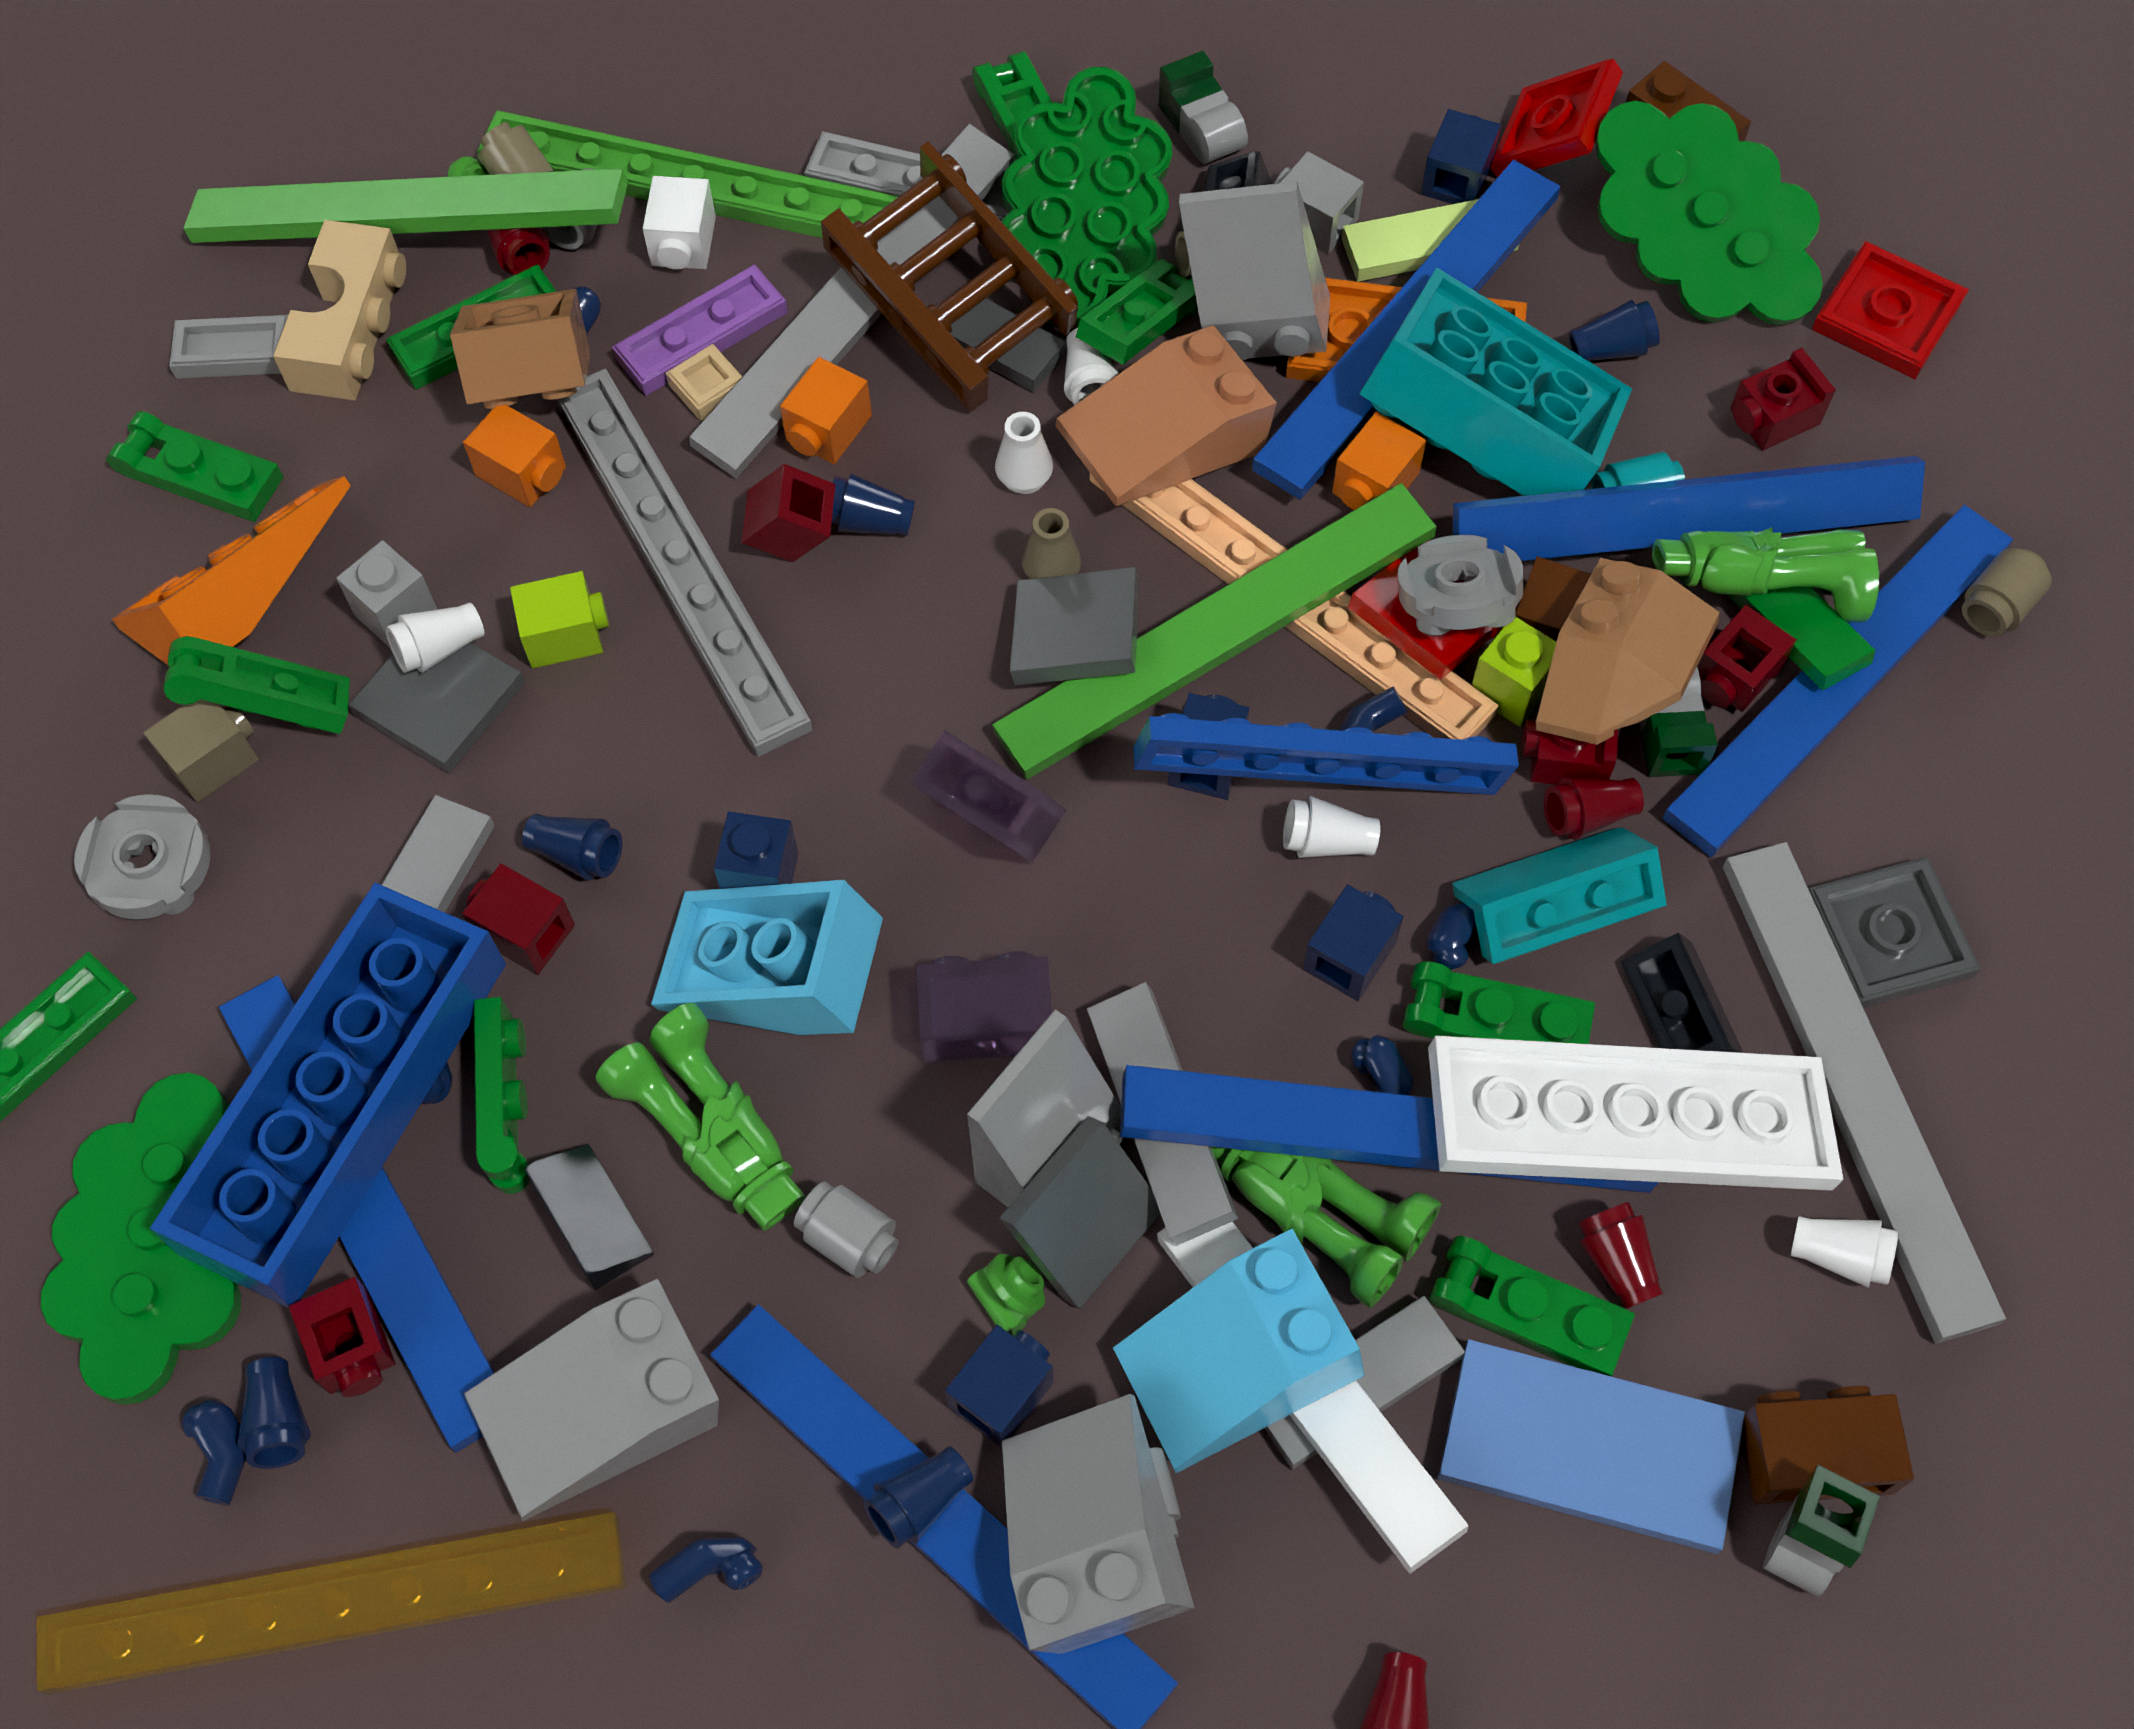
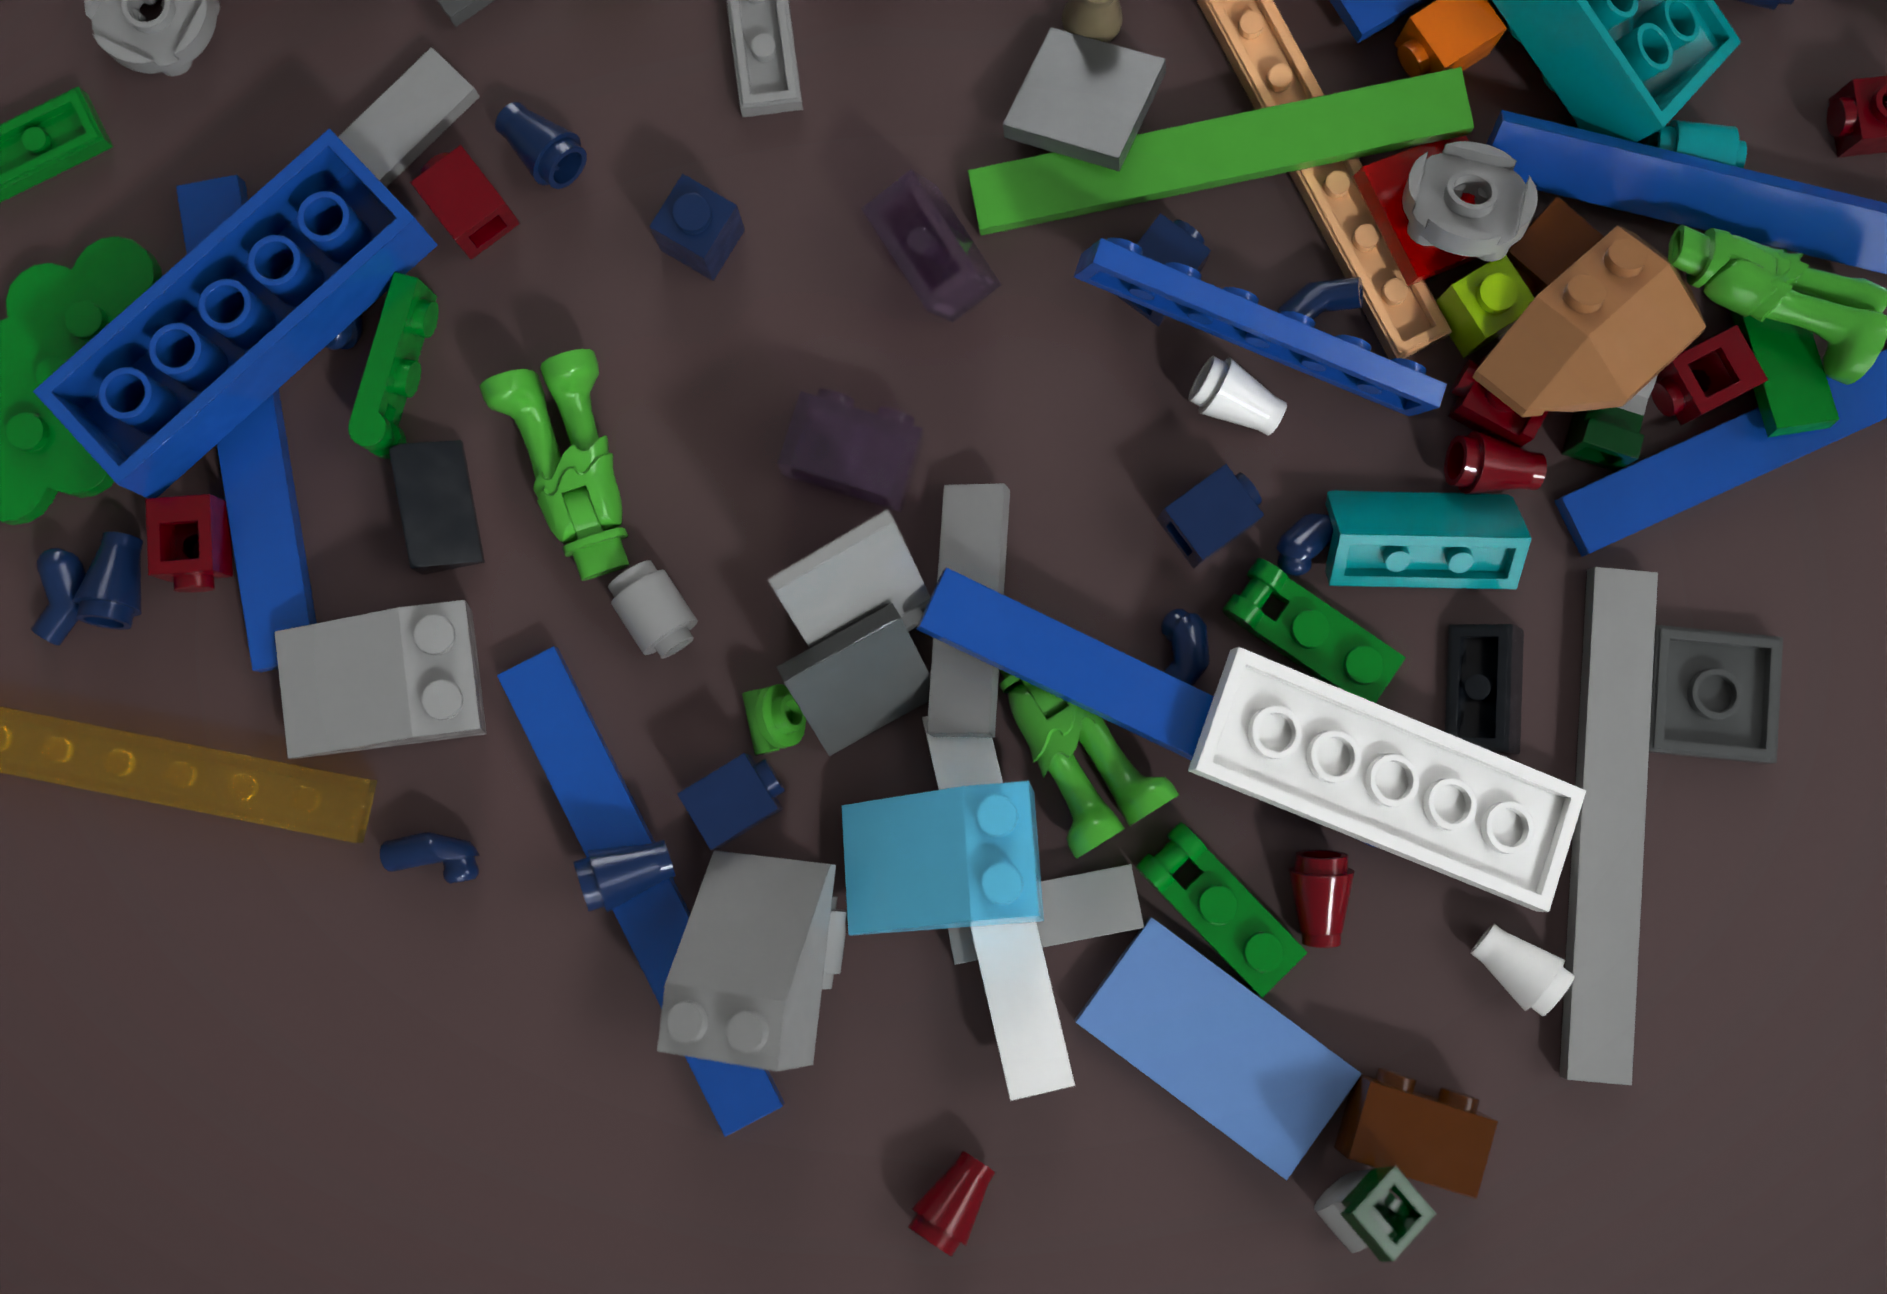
camera: 20 degrees right, 20 degrees up
(772, 956) = (678, 327): medium azure slope -> none

